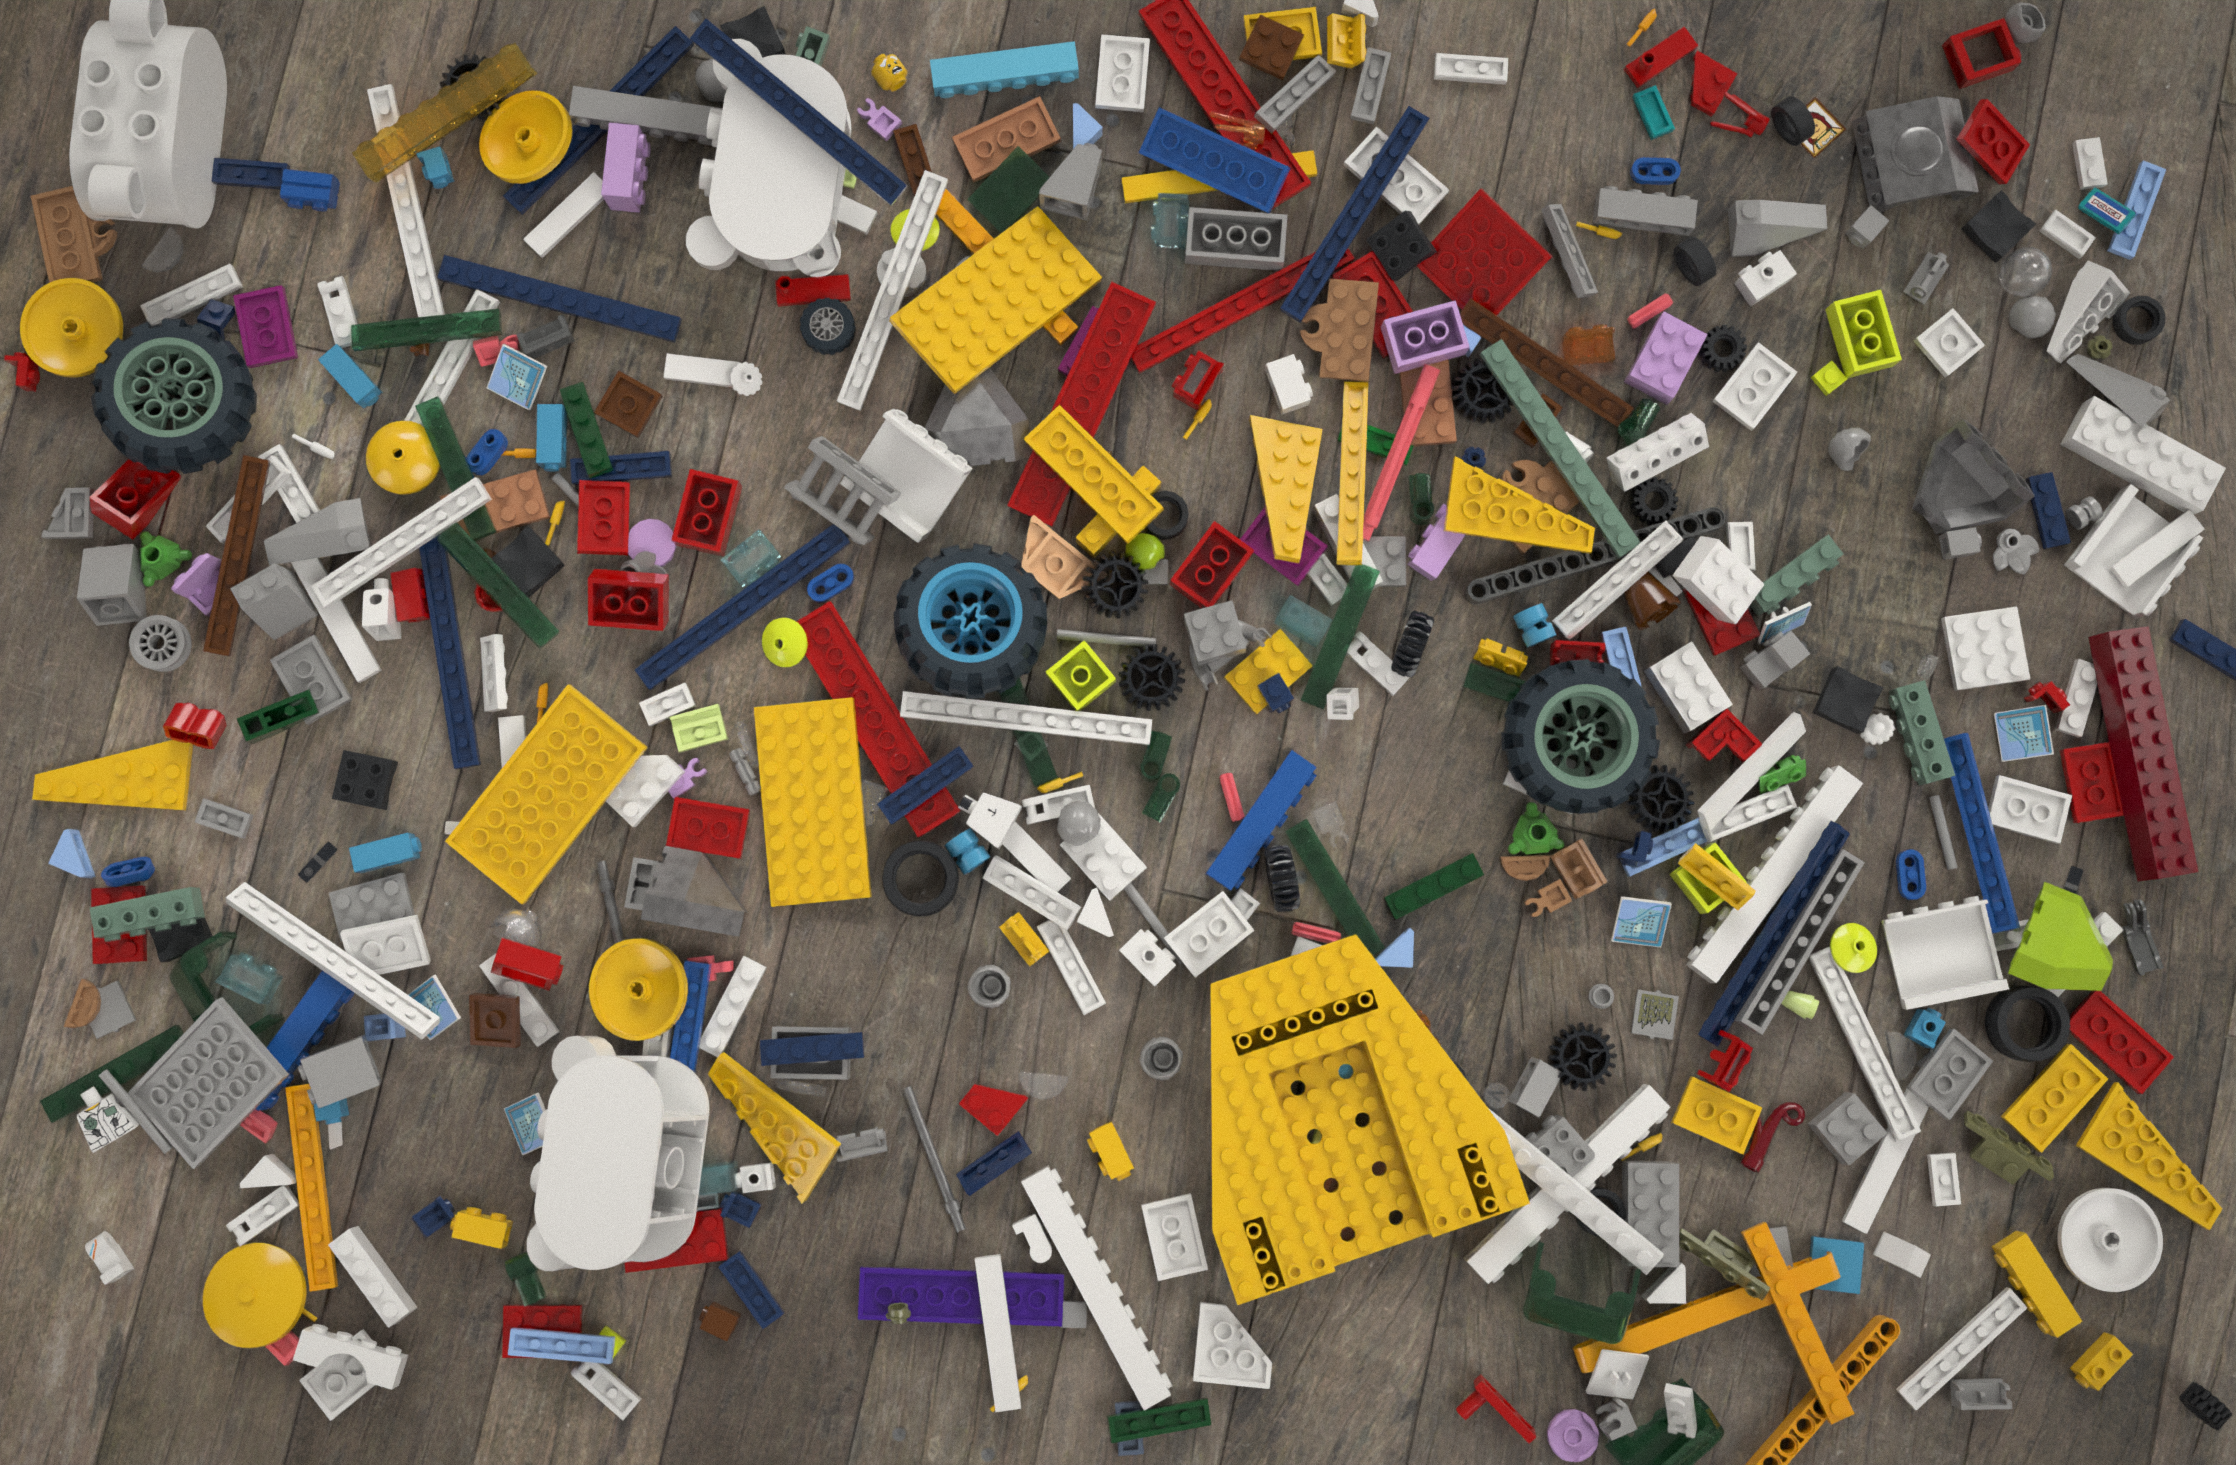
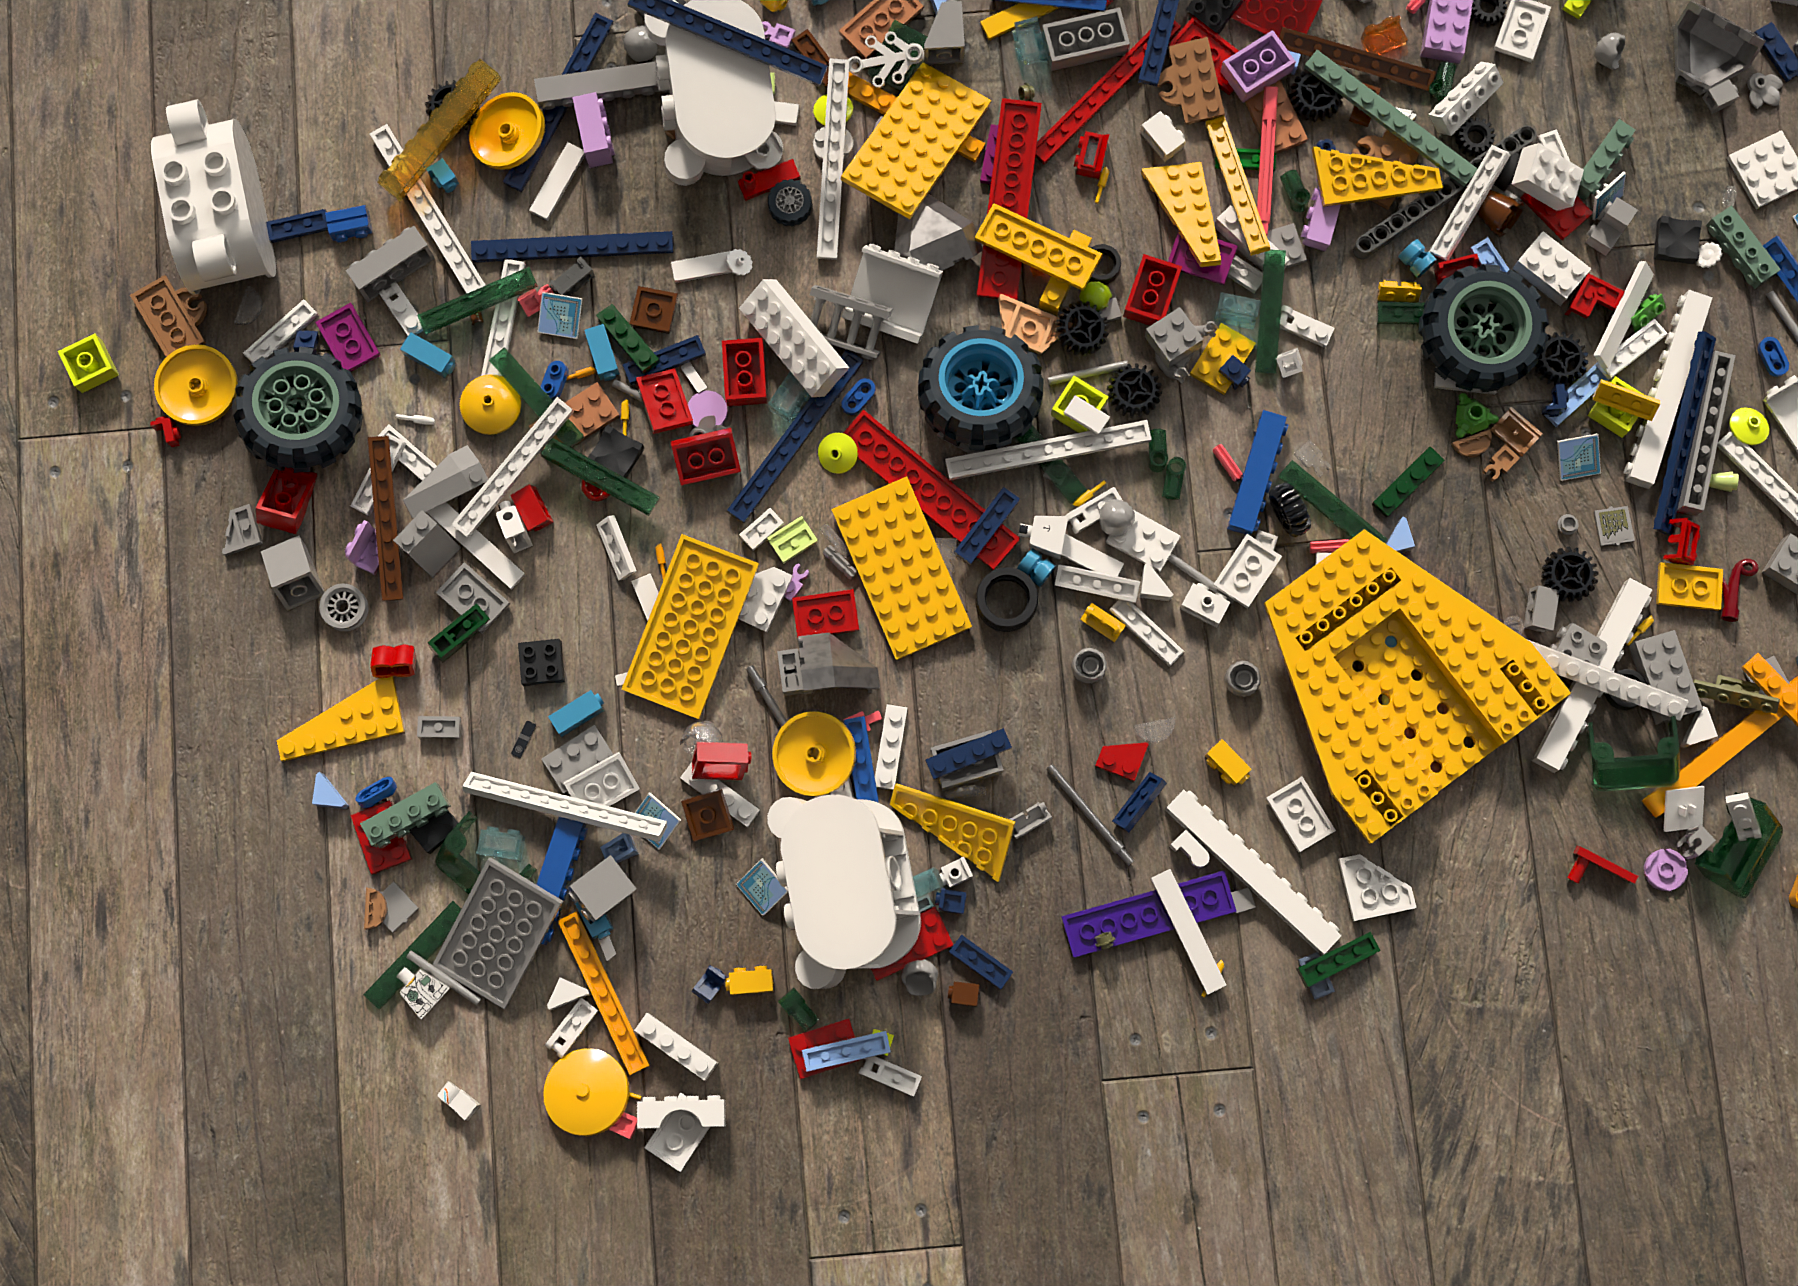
camera: 10 degrees left, 5 degrees down
(159, 557) = (321, 541): bright green rock -> none
(260, 1125) = (546, 957): coral plate -> none
(338, 254) = (390, 263): none -> light grey brick
(449, 655) = (576, 544): dark blue plate -> none
(649, 499) = (693, 377): none -> white sticker
(674, 1286) = (920, 977): none -> light grey hair
(774, 492) = (794, 338): none -> white brick
(997, 191) = (889, 58): none -> white plant
(1082, 693) = (1086, 415): none -> white tile
(1146, 281) = (1026, 92): none -> olive plate
(1412, 644) = (1329, 299): black gear -> none

